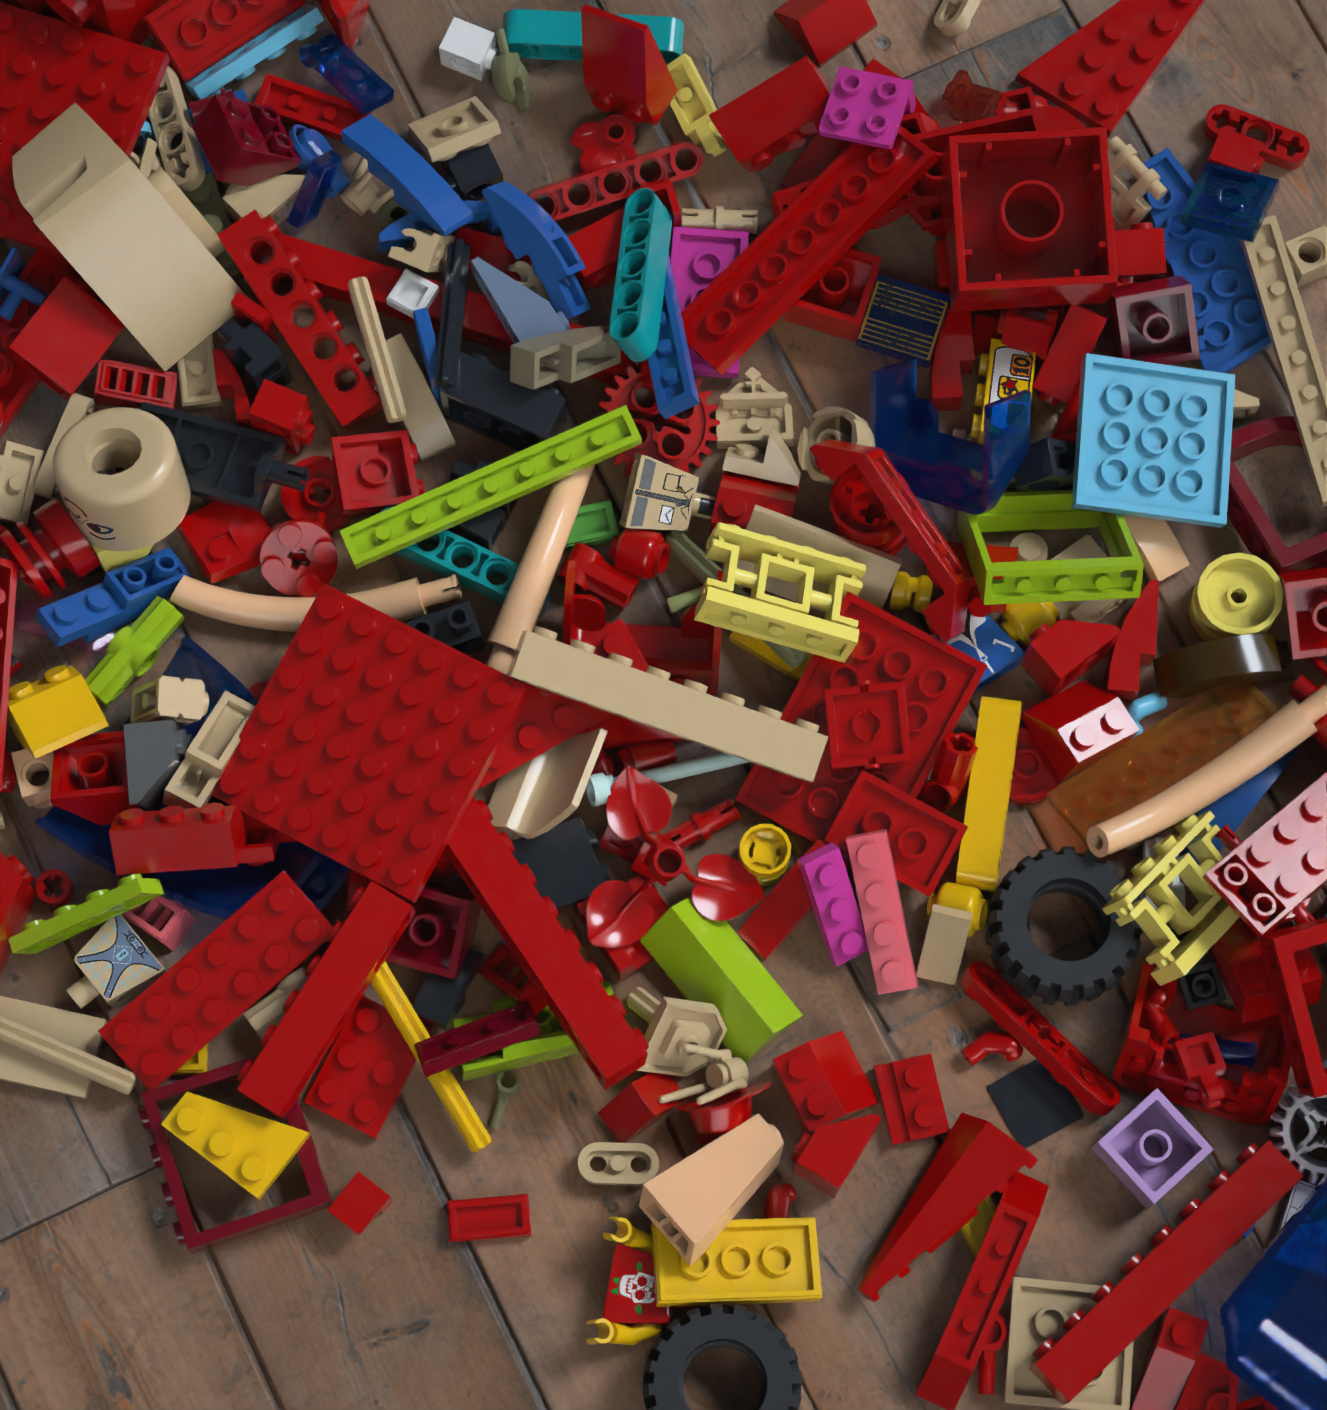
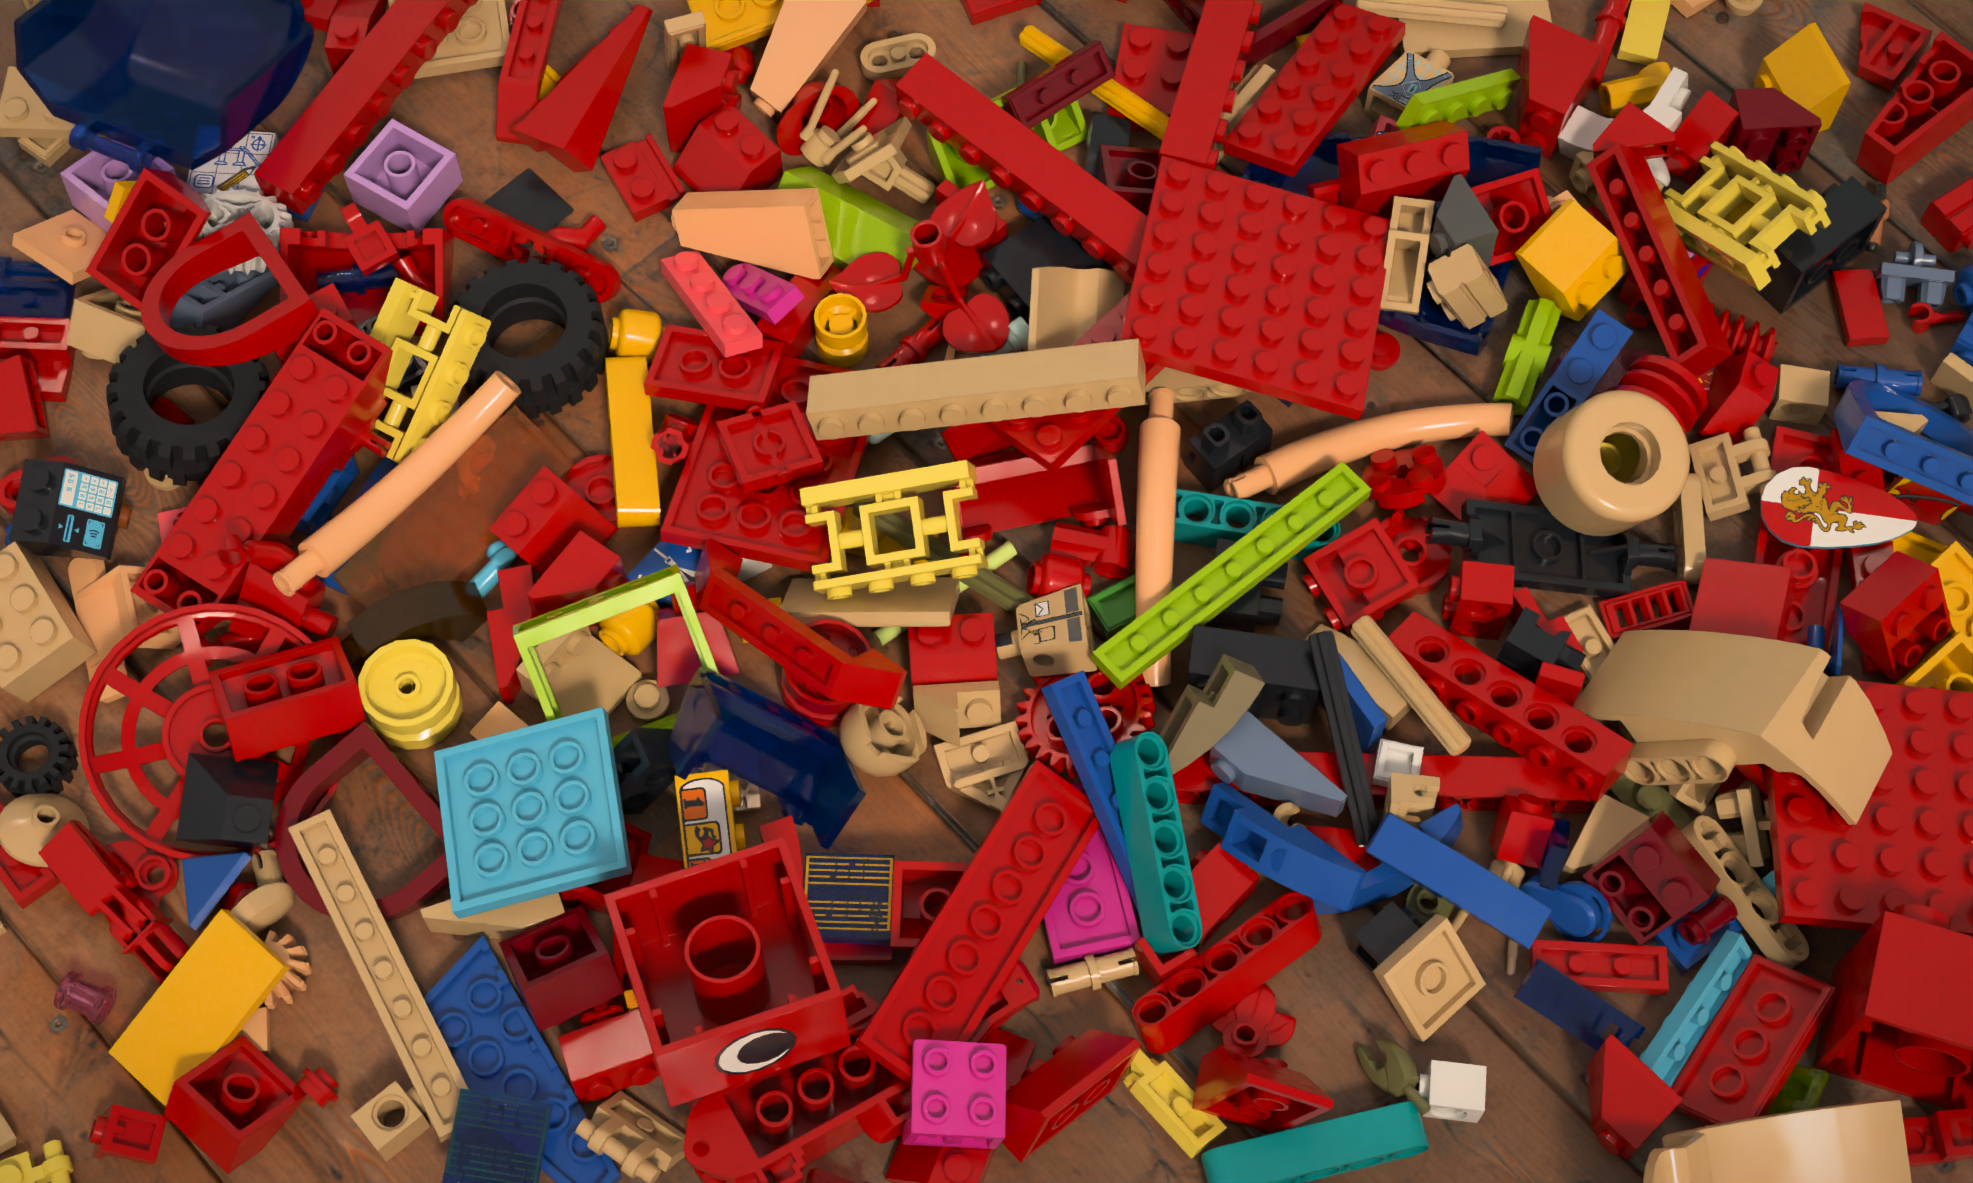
camera: 165 degrees right, 10 degrees down
(331, 220) = (1521, 830): none -> red brick
(820, 983) = (758, 227): none -> light nougat slope
(838, 1206) = (679, 32): none -> tan tile
(944, 944) = (643, 295): tan tile -> none

